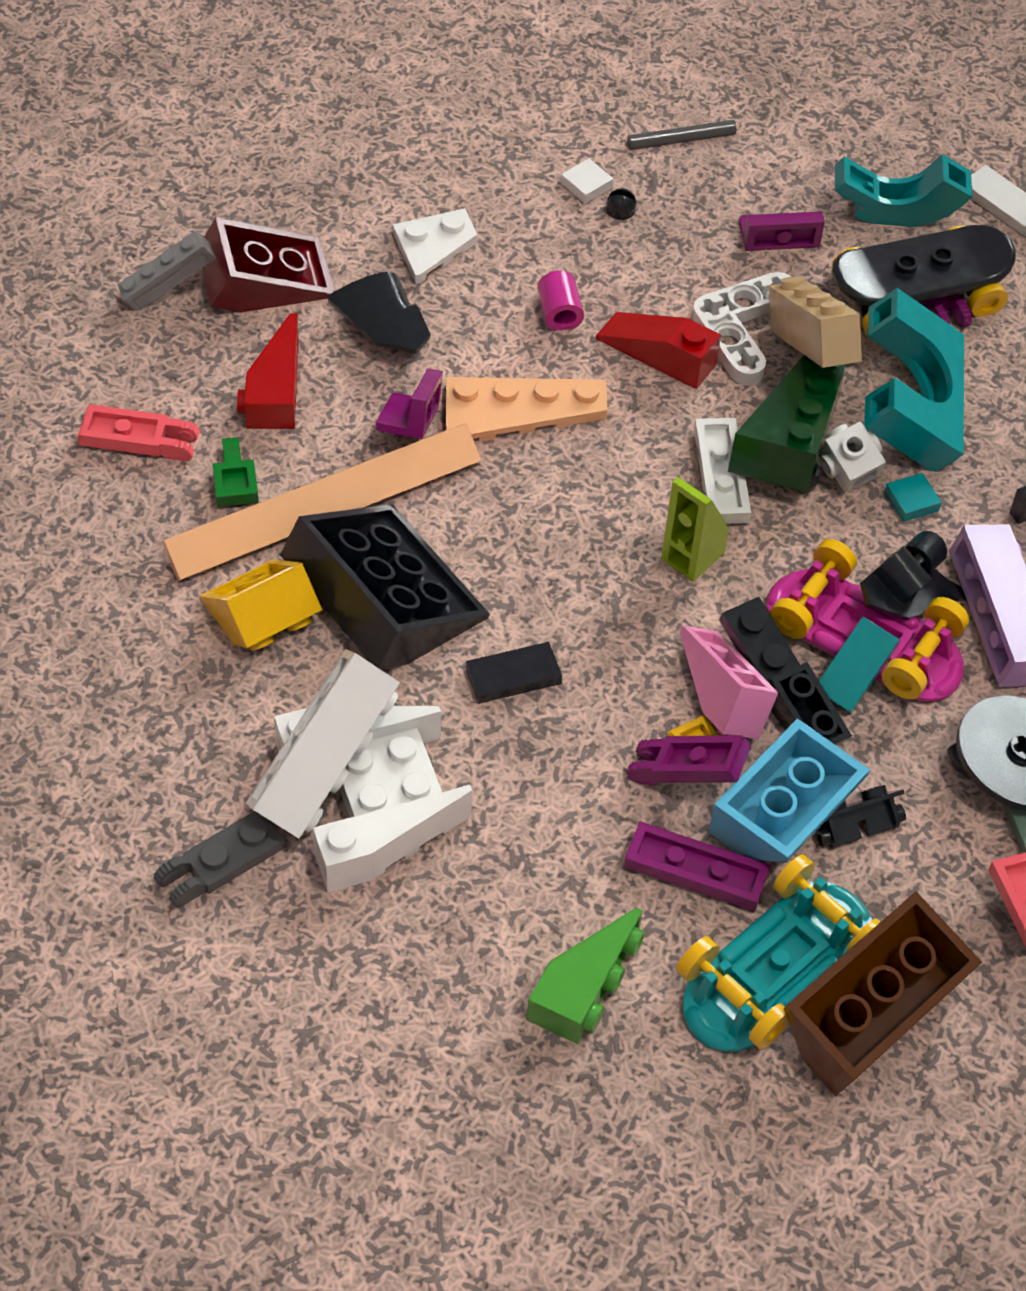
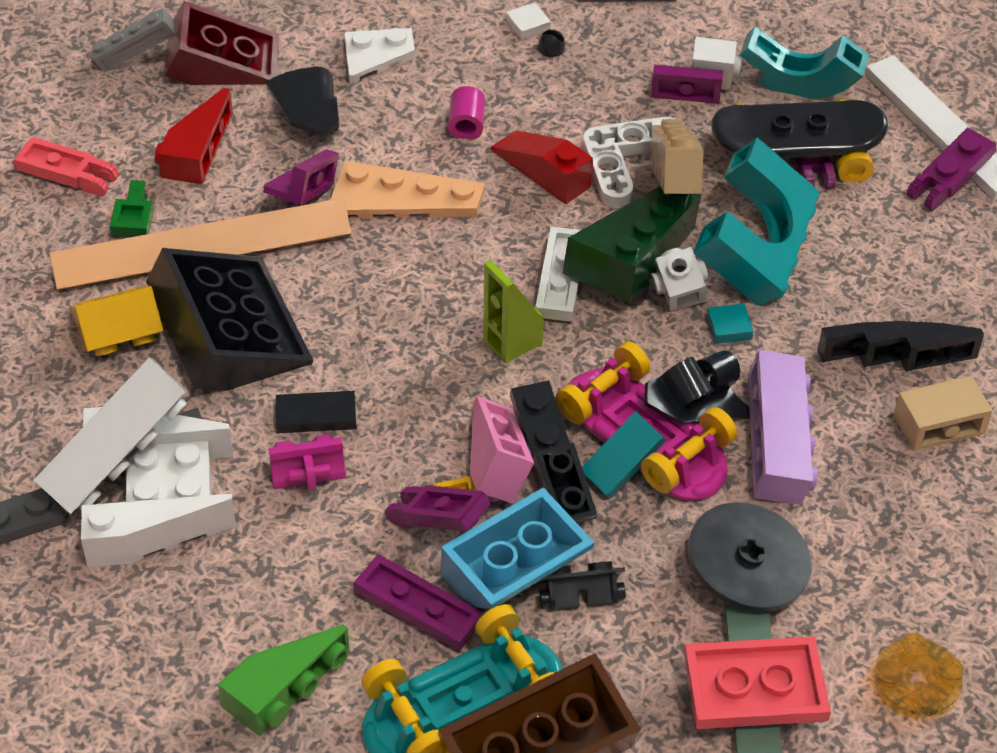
camera: 15 degrees right, 5 degrees down
(527, 733) = (307, 462): none -> dark pink hips
(808, 195) = (717, 55): none -> white brick

